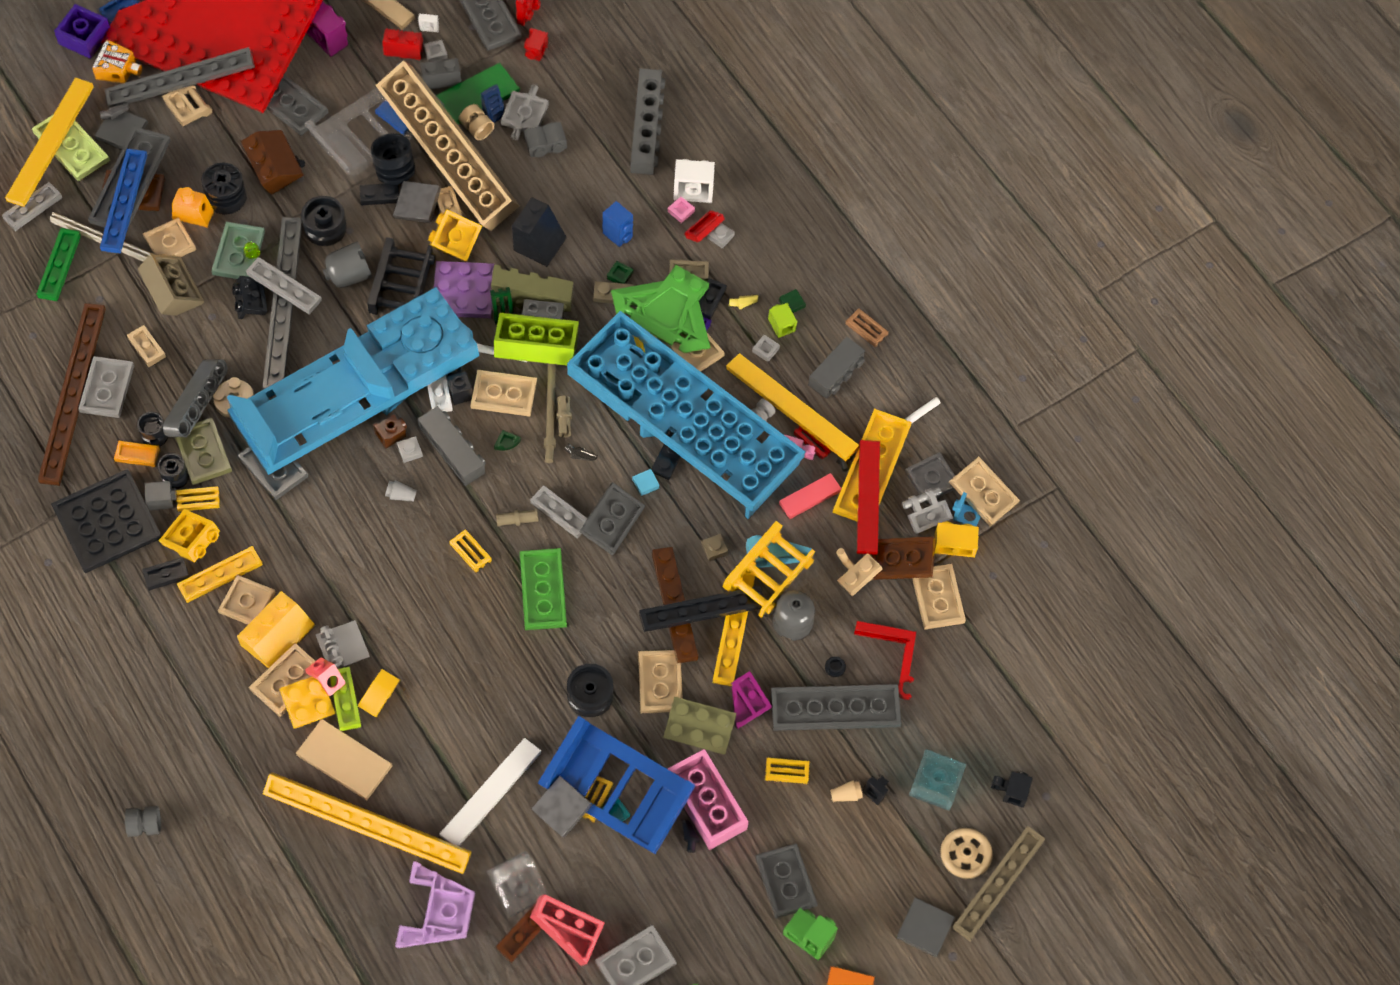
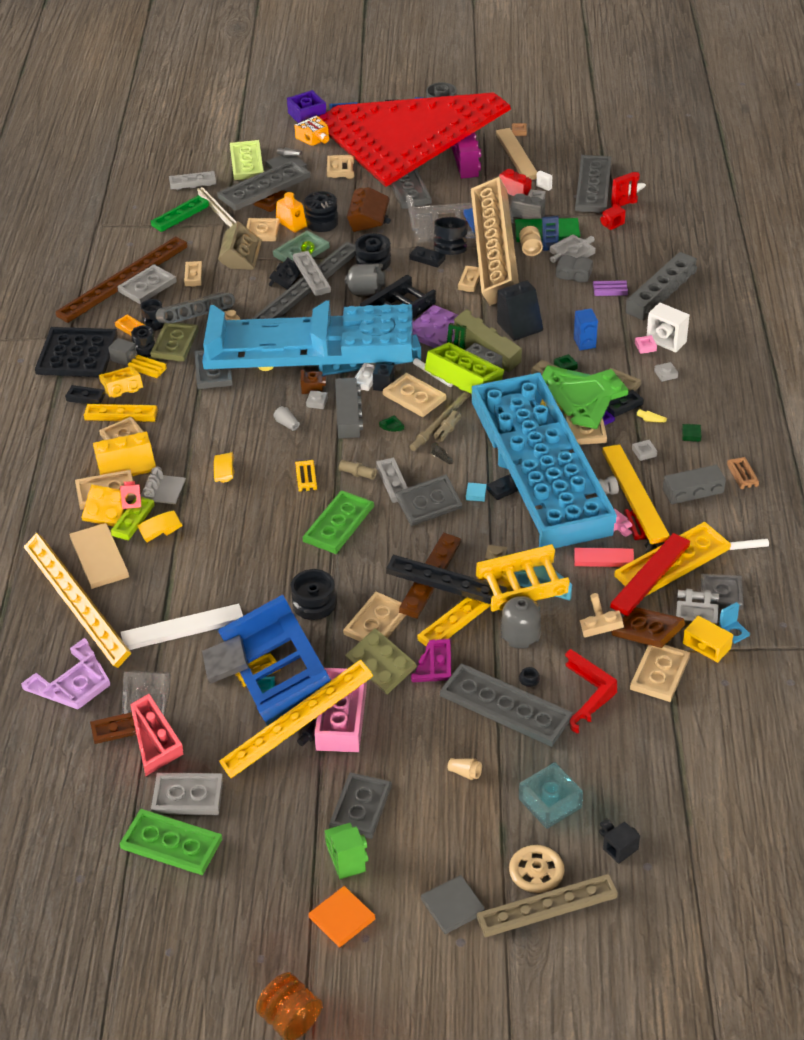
camera: 40 degrees right, 20 degrees down
(49, 142) = (232, 151): yellow tile -> none
(123, 201) = (246, 189): blue plate -> none
(180, 77) = (377, 146): dark grey plate -> none
(385, 587) = (223, 467): none -> yellow slope
(417, 202) = (448, 267): flat silver tile -> none
(454, 235) = (457, 292): yellow plate -> none
(593, 145) = (610, 288): none -> medium lavender tile
(683, 837) = (295, 718): none -> yellow plate
(704, 226) = (658, 359): red tile -> none
(782, 320) = (672, 438): lime brick -> none
(787, 778) = (425, 730): yellow tile -> none
(876, 789) = (492, 777): black tile -> none
(984, 491) = (761, 619): tan tile -> none

